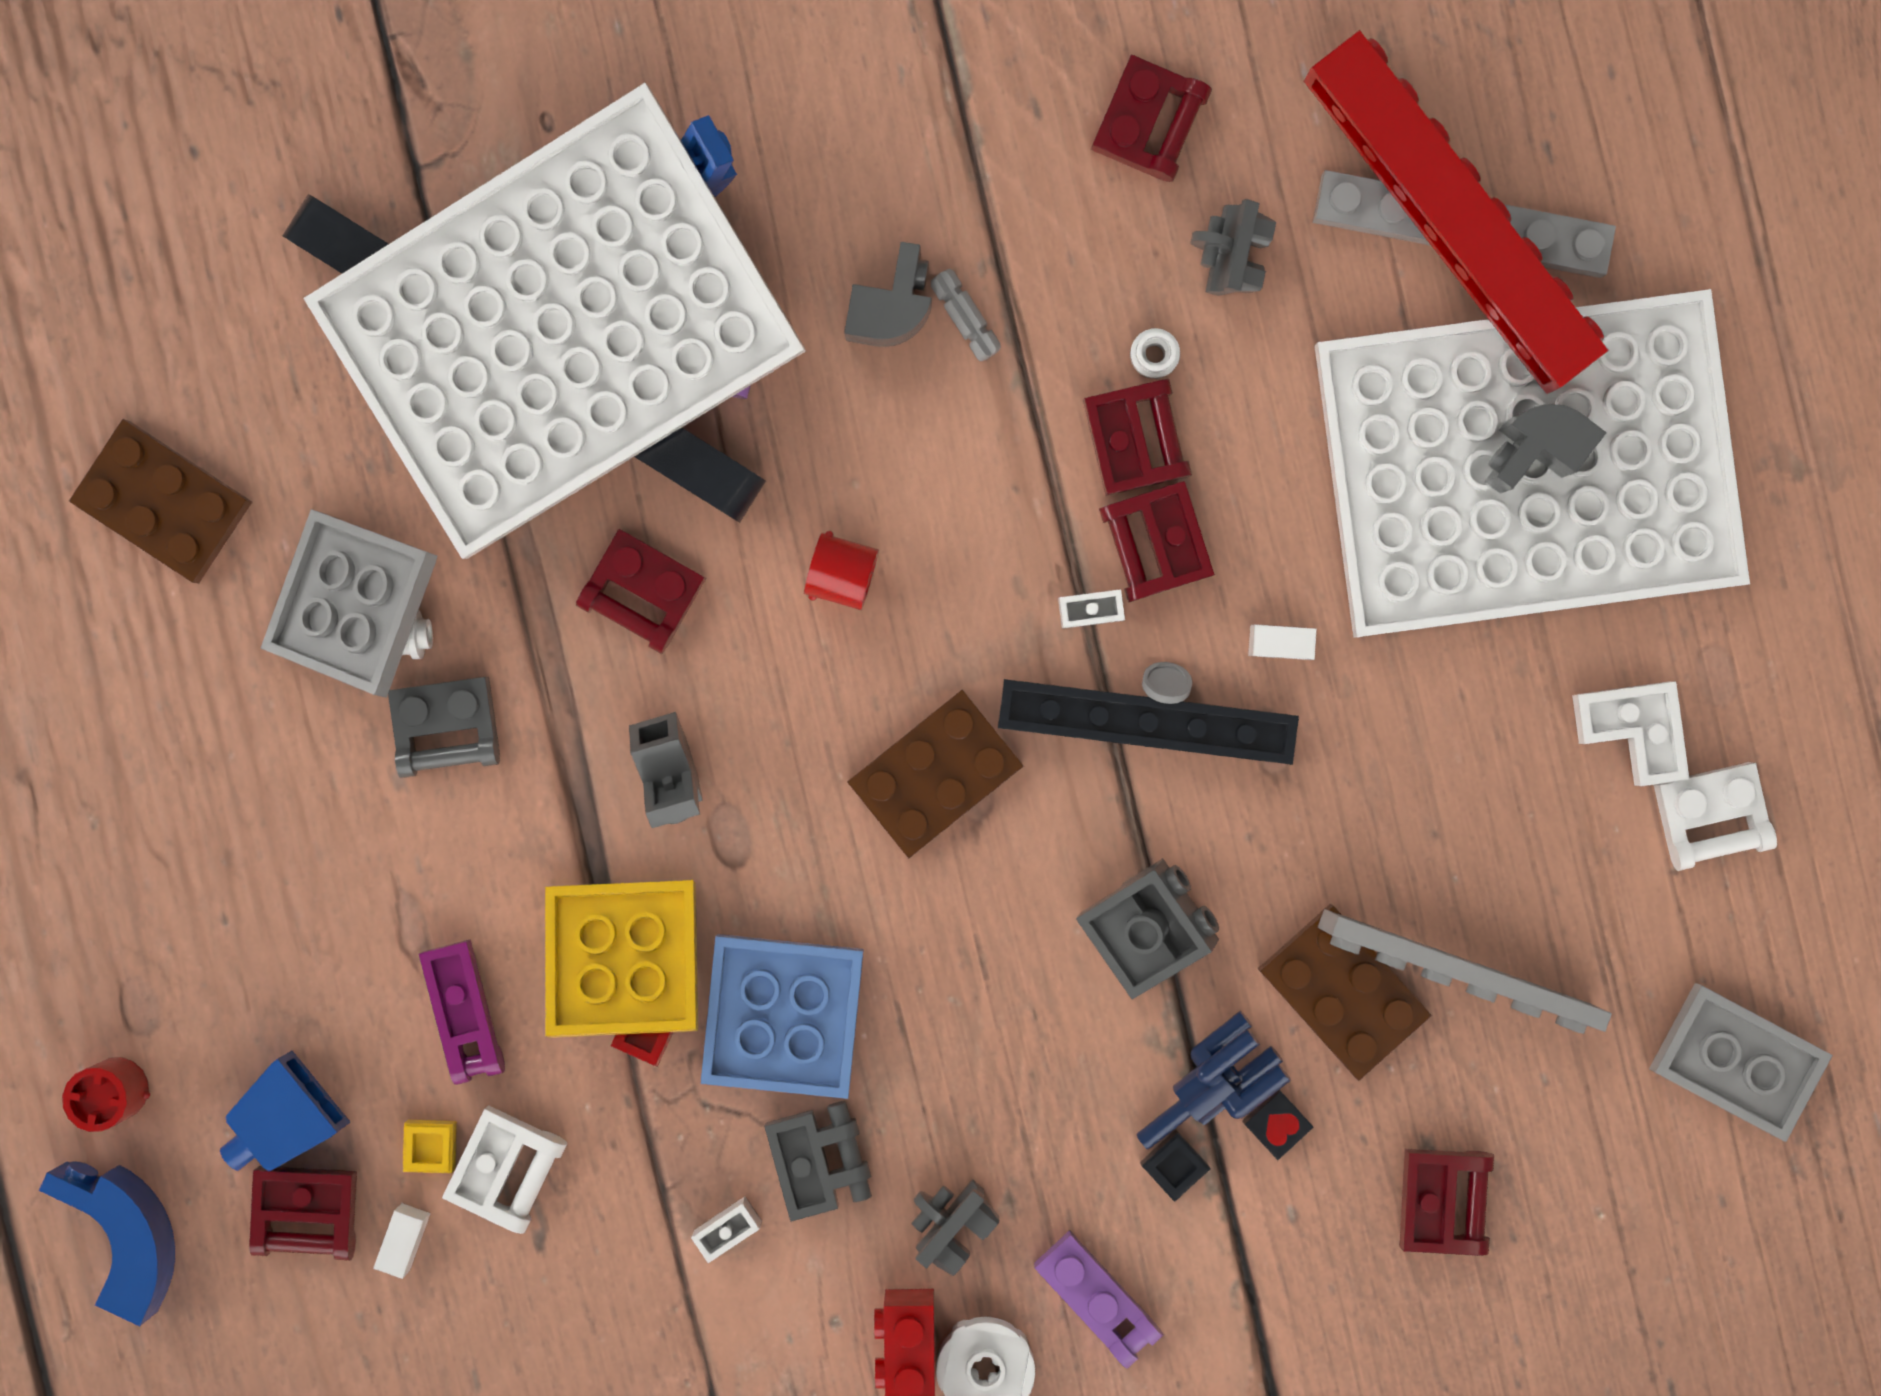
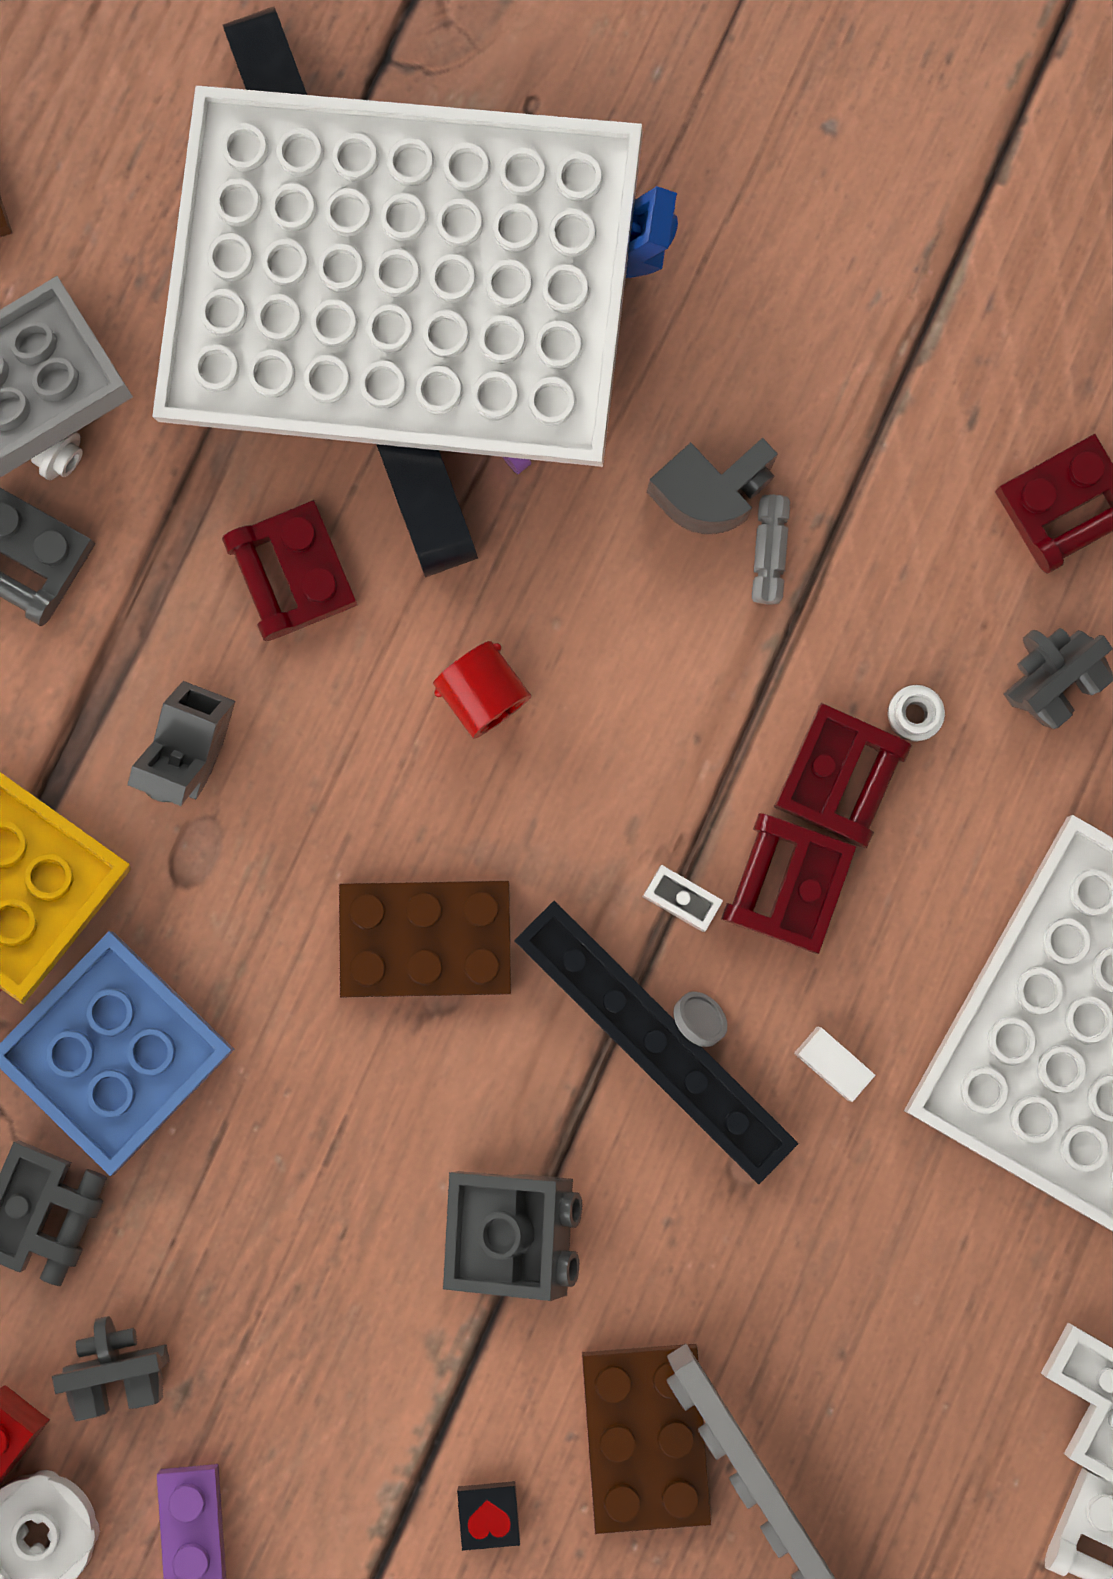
camera: 40 degrees right, 5 degrees down
(1175, 1165) = (363, 1479): black tile -> none
(1217, 1083) = (461, 1431): dark blue plant -> none

